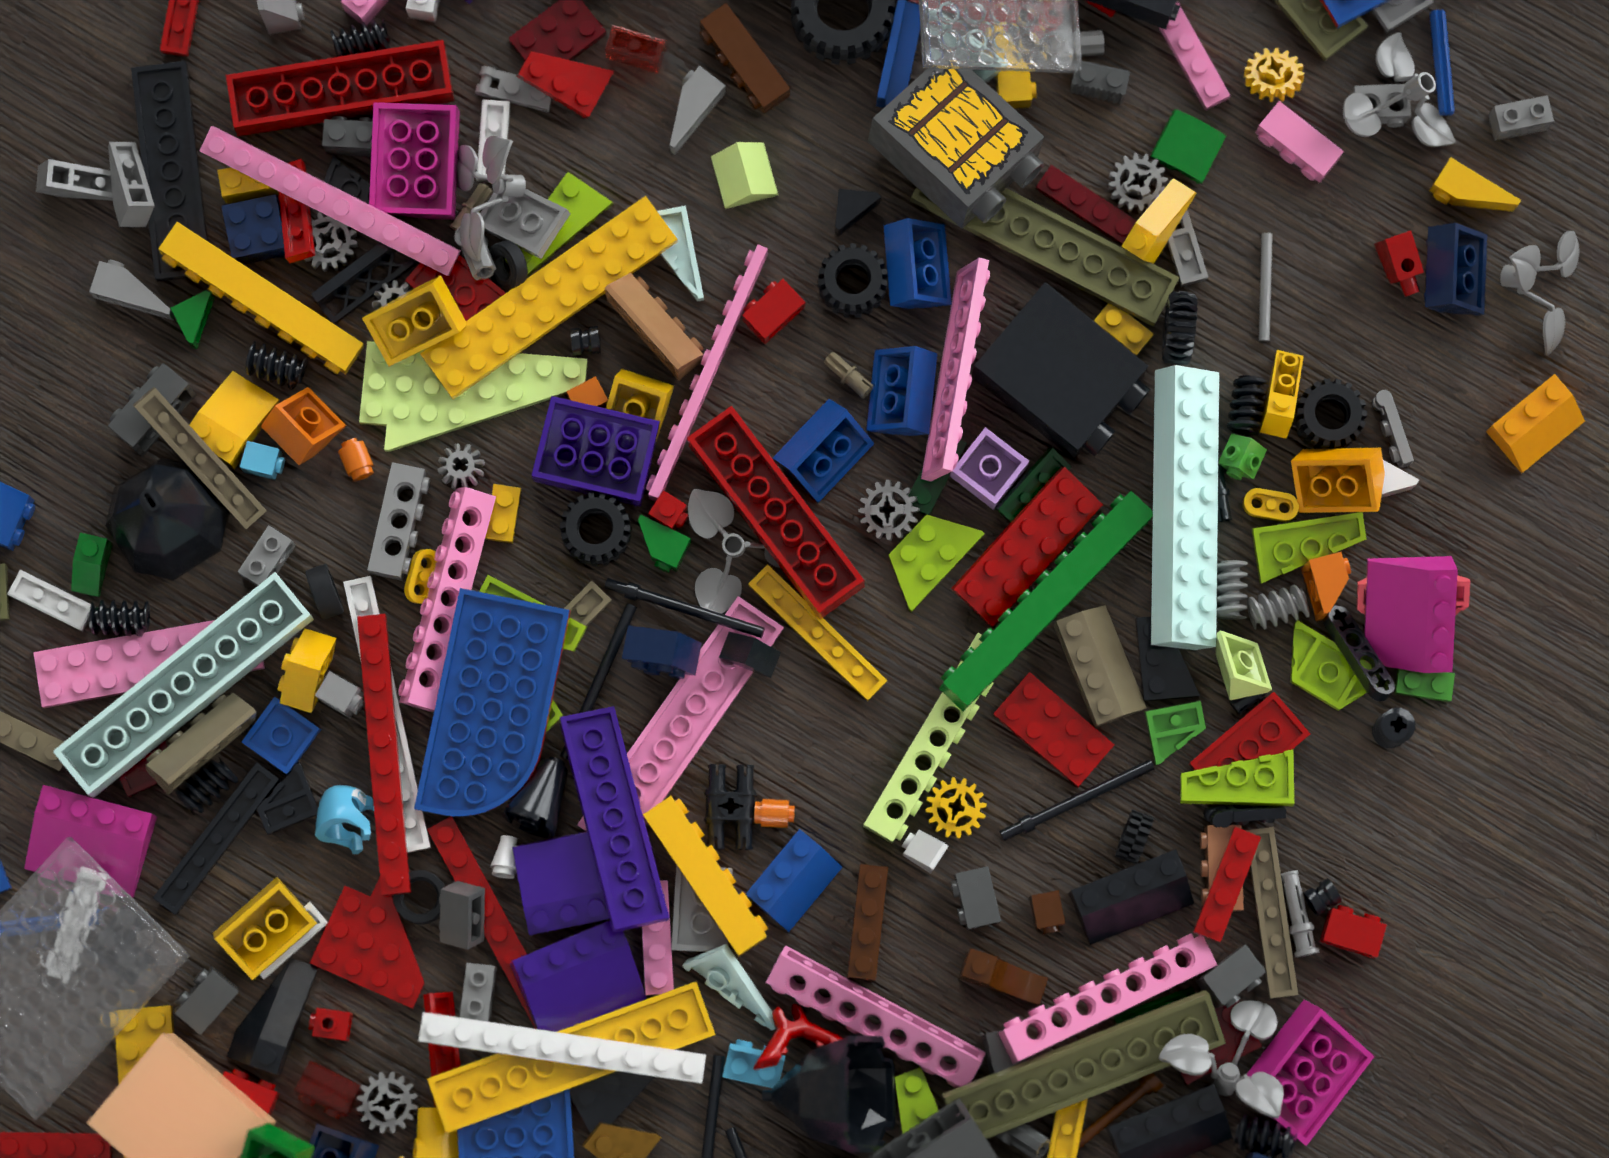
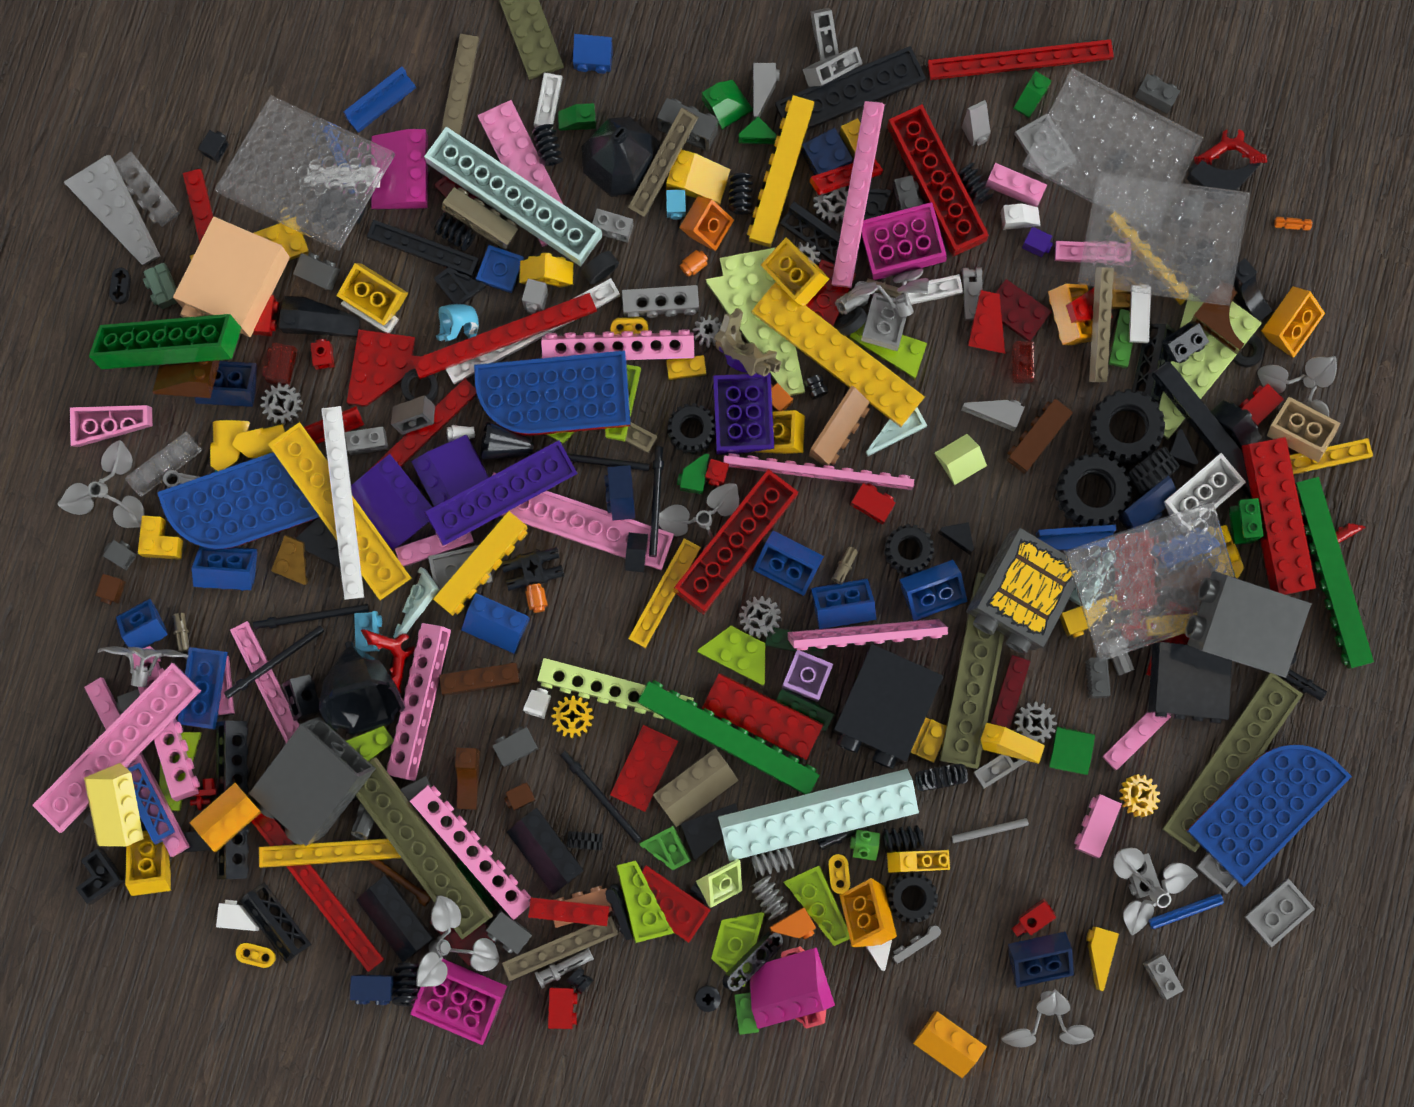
camera: 75 degrees right, 0 degrees up
(134, 348) = (726, 103): none -> green slope
(518, 419) = (741, 355): none -> dark tan hips

